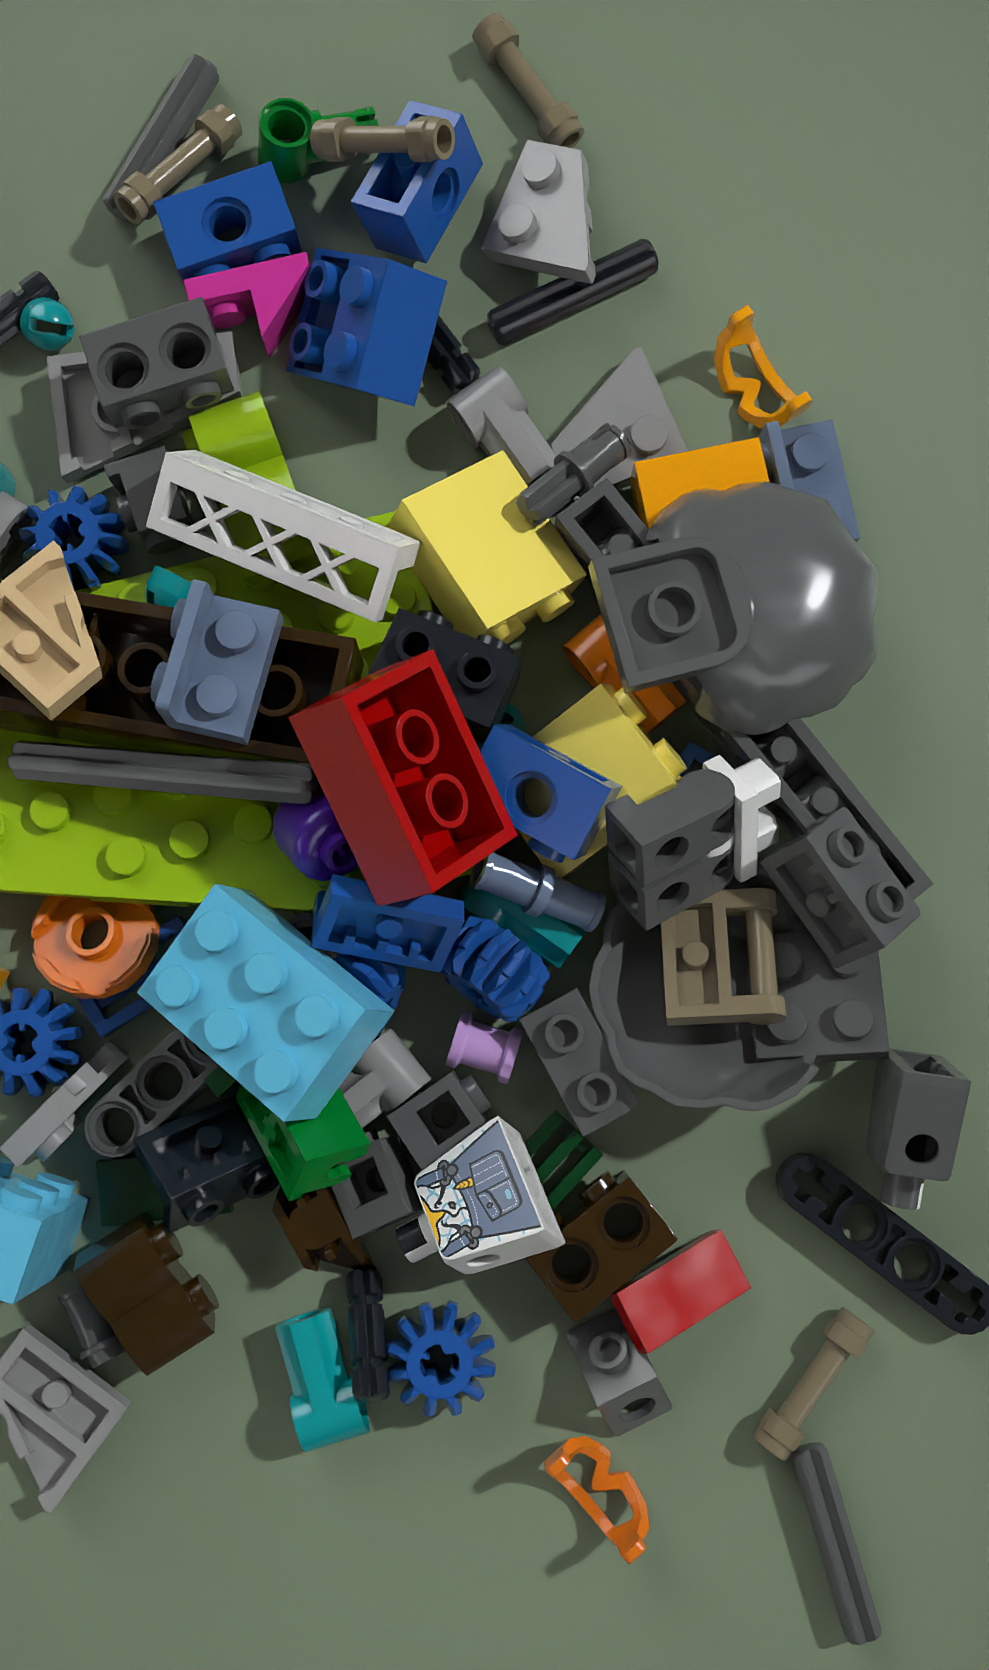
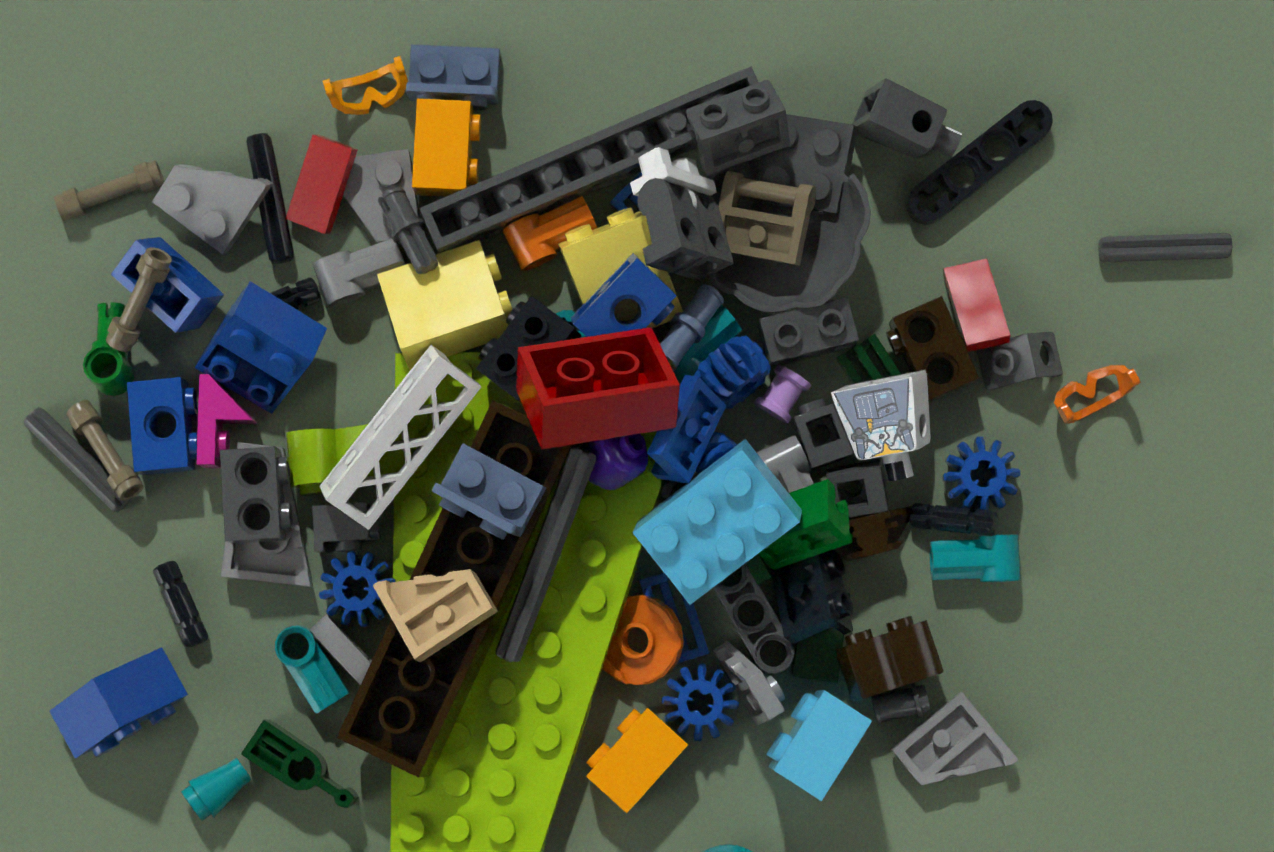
camera: 70 degrees left, 0 degrees up
(50, 311) = (188, 567): teal hinge -> none
(165, 588) = (417, 526): teal hinge -> none
(609, 349) = (321, 184): none -> red tile
(751, 598) = (530, 134): dark grey animal -> none
(781, 1430) = (1034, 204): dark tan bar -> none

